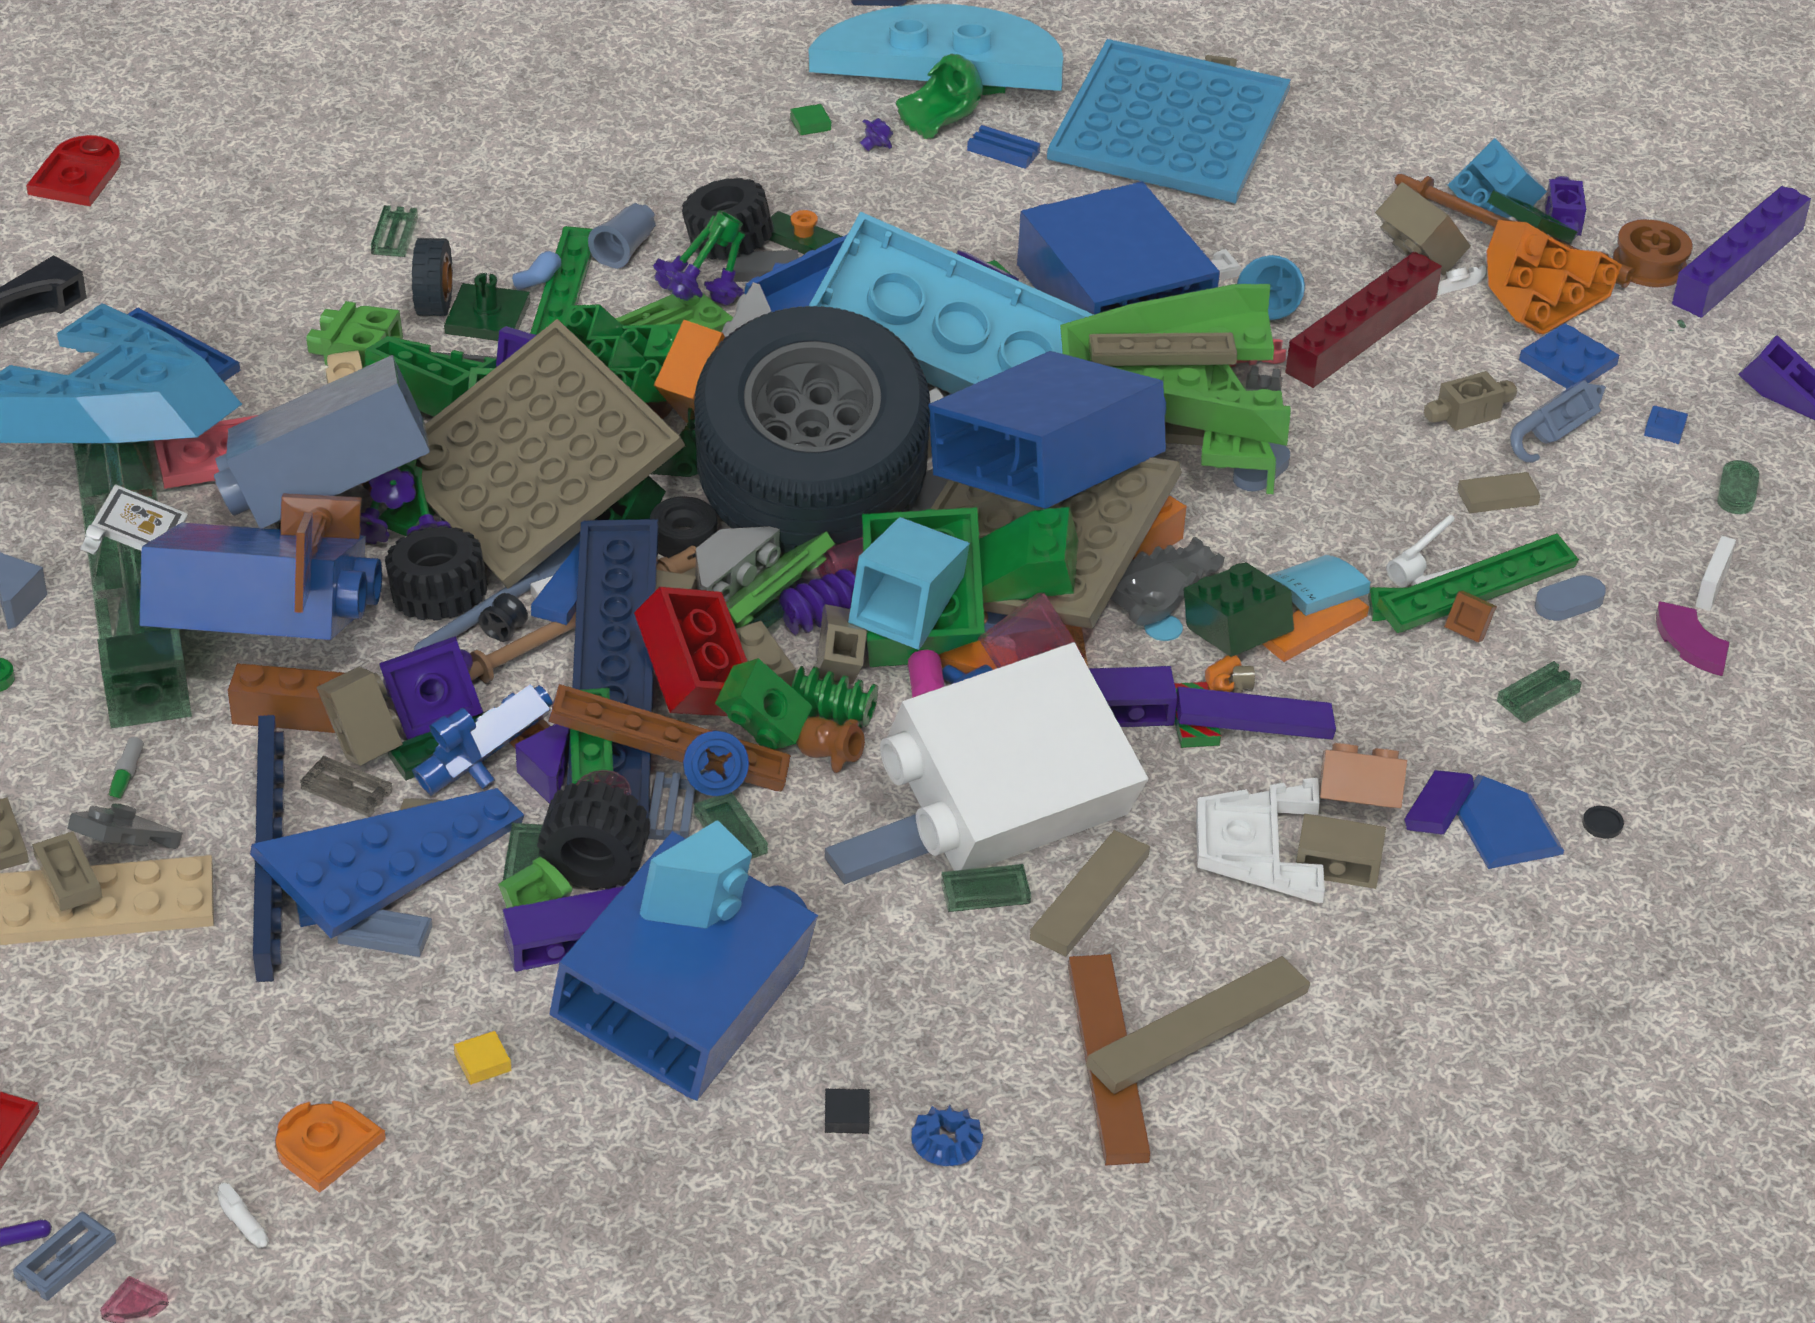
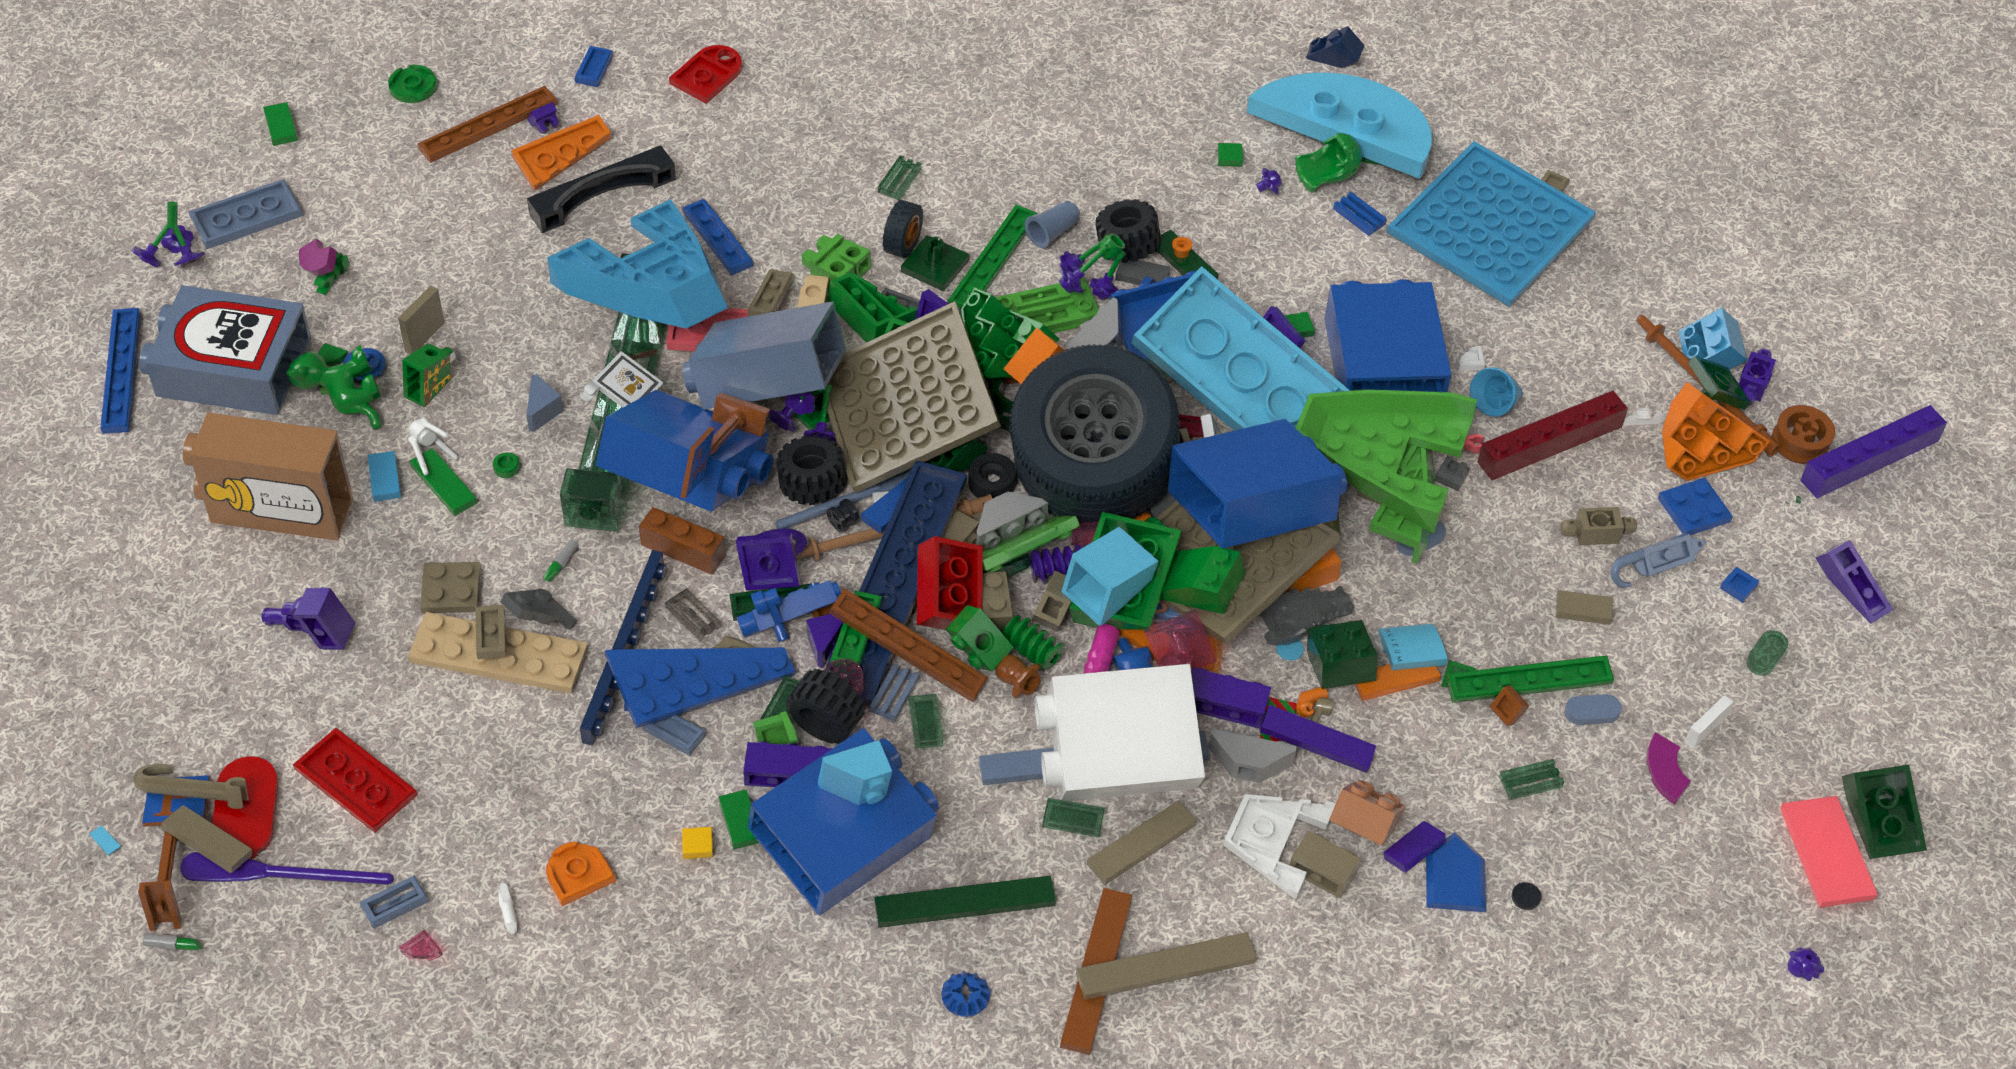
camera: 20 degrees right, 10 degrees up
(282, 384) = (771, 292): none -> dark tan tile
(360, 715) = (714, 569): dark tan brick -> none
(528, 1012) = (736, 812): none -> green tile
(539, 272) = (982, 239): medium blue arm -> none
(711, 782) = (924, 684): blue gear -> none
(847, 1111) = (909, 955): black tile -> none
(888, 1026) = (964, 901): none -> dark green tile
(1163, 349) = (1376, 432): dark tan tile -> none
(1184, 754) = (1250, 756): none -> light grey slope
(1410, 565) = (1486, 651): white plant -> none
(1421, 228) = (1628, 372): dark tan brick -> none

